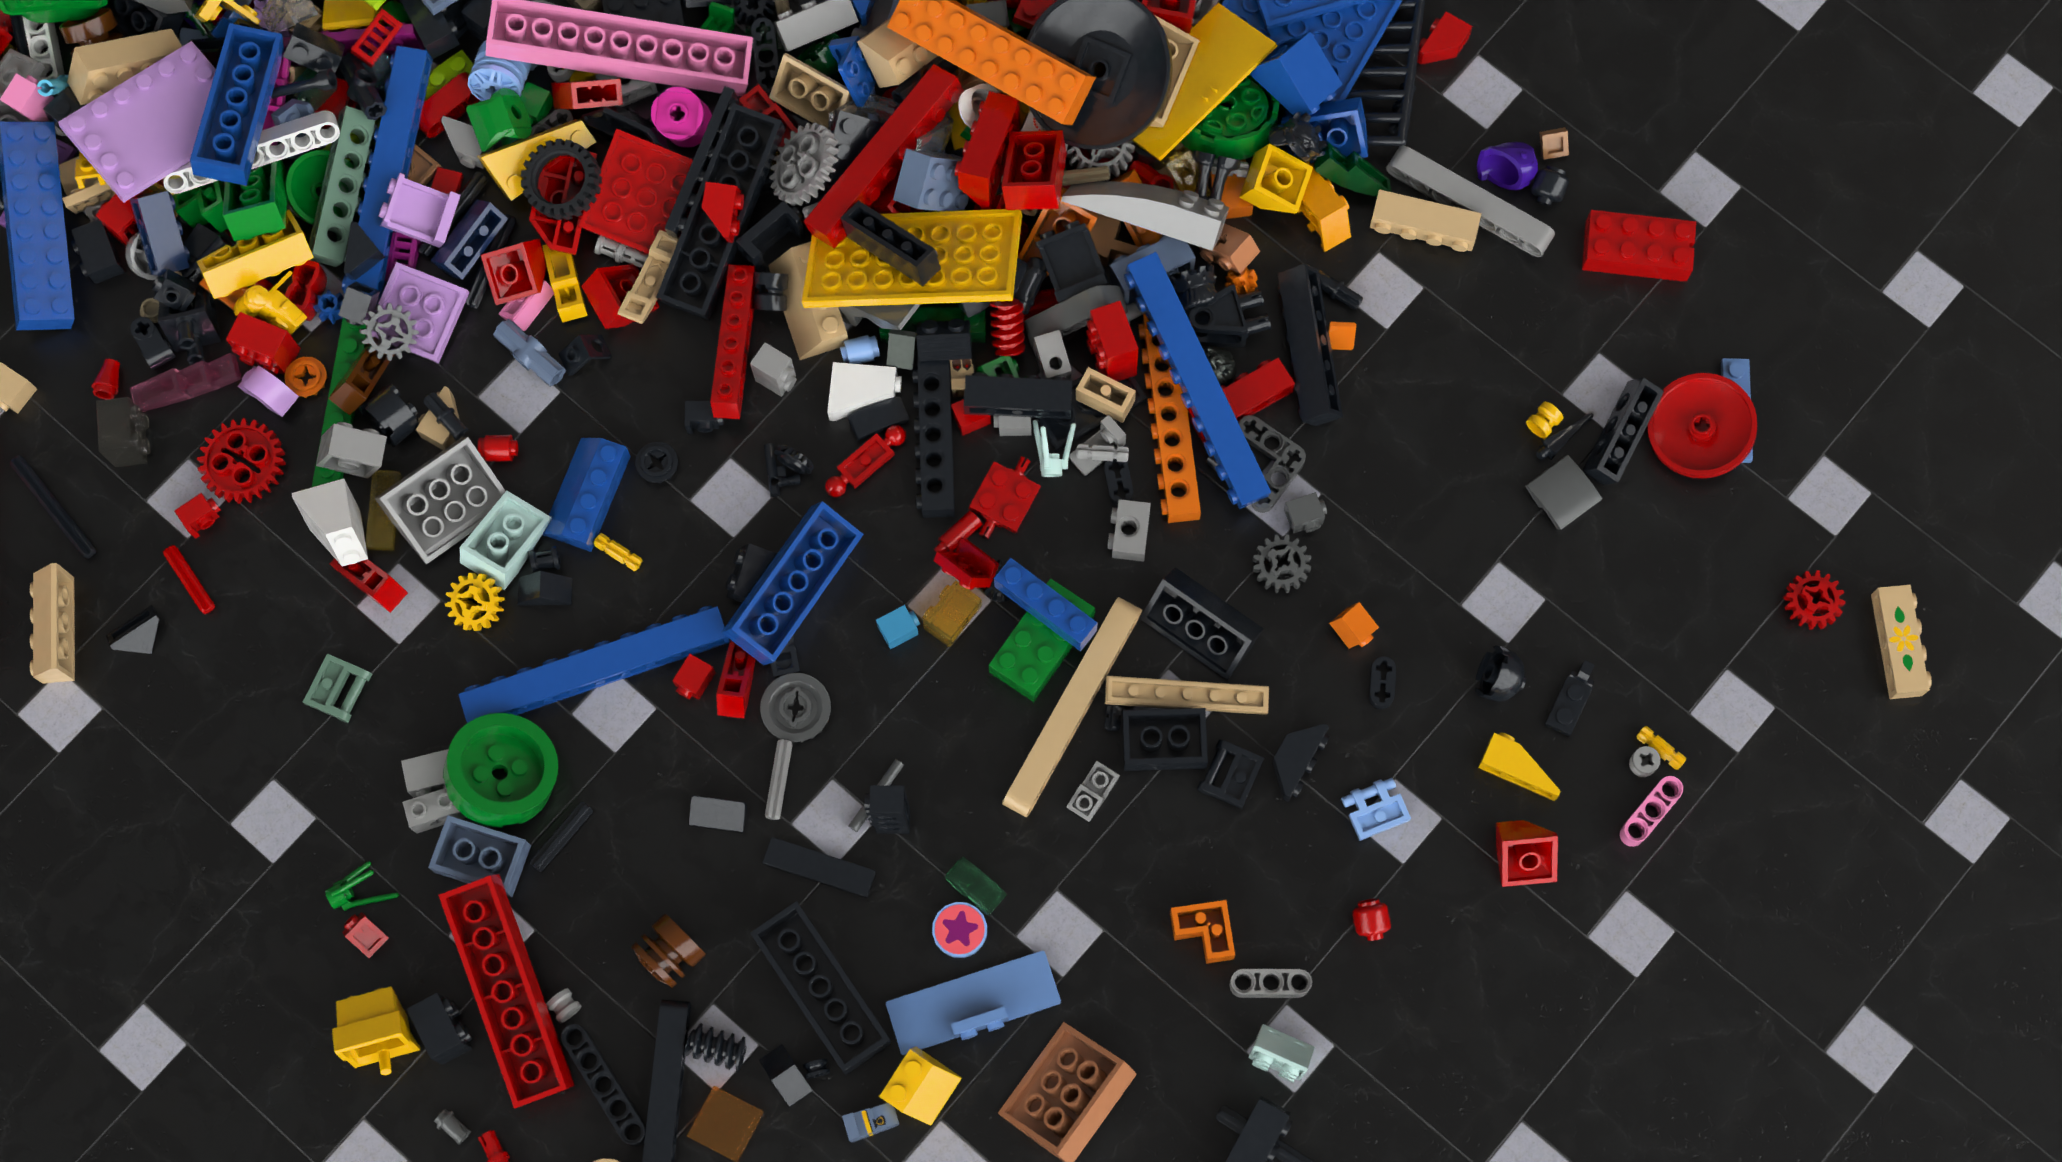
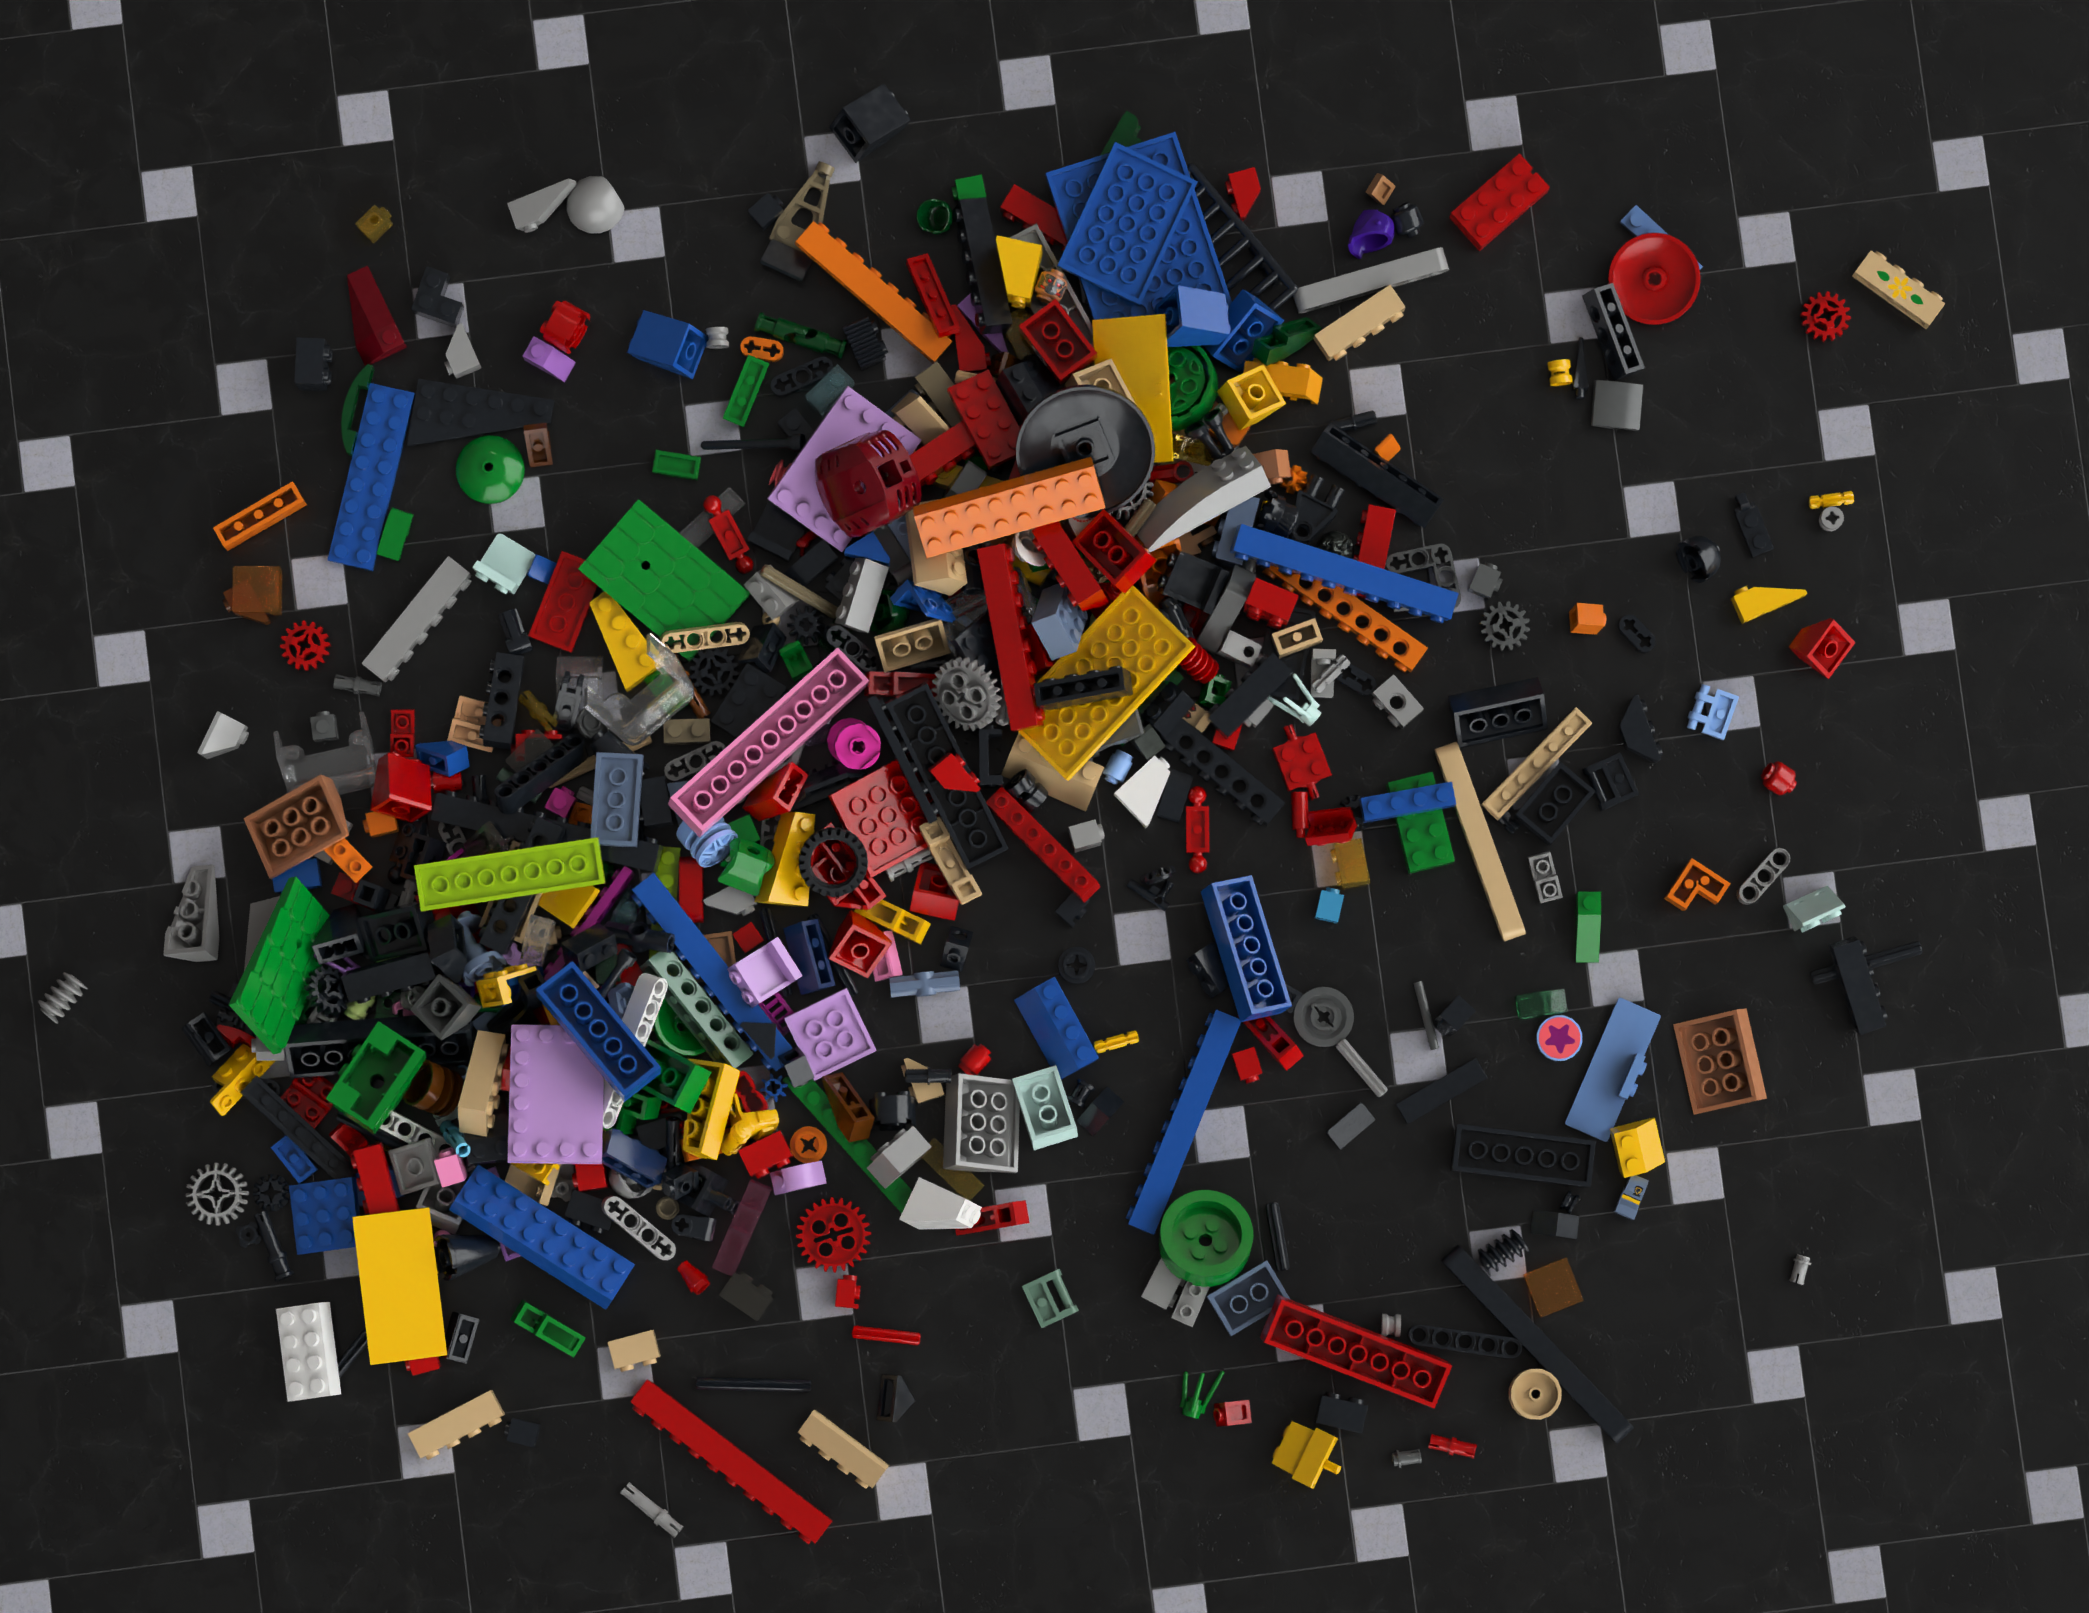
camera: 55 degrees left, 10 degrees up
(106, 297) = (639, 1226): none -> light grey beam
(363, 56) = (624, 897): red slope -> none
(394, 320) = (840, 1070): gear -> none
(470, 611) = (1064, 1167): yellow gear -> none
(668, 950) = (1416, 1230): reddish brown wheel -> none
(1082, 866) = (1587, 926): none -> green slope
(1300, 137) = (1238, 357): black hair -> none
(1660, 802) = (1869, 534): bright pink beam -> none

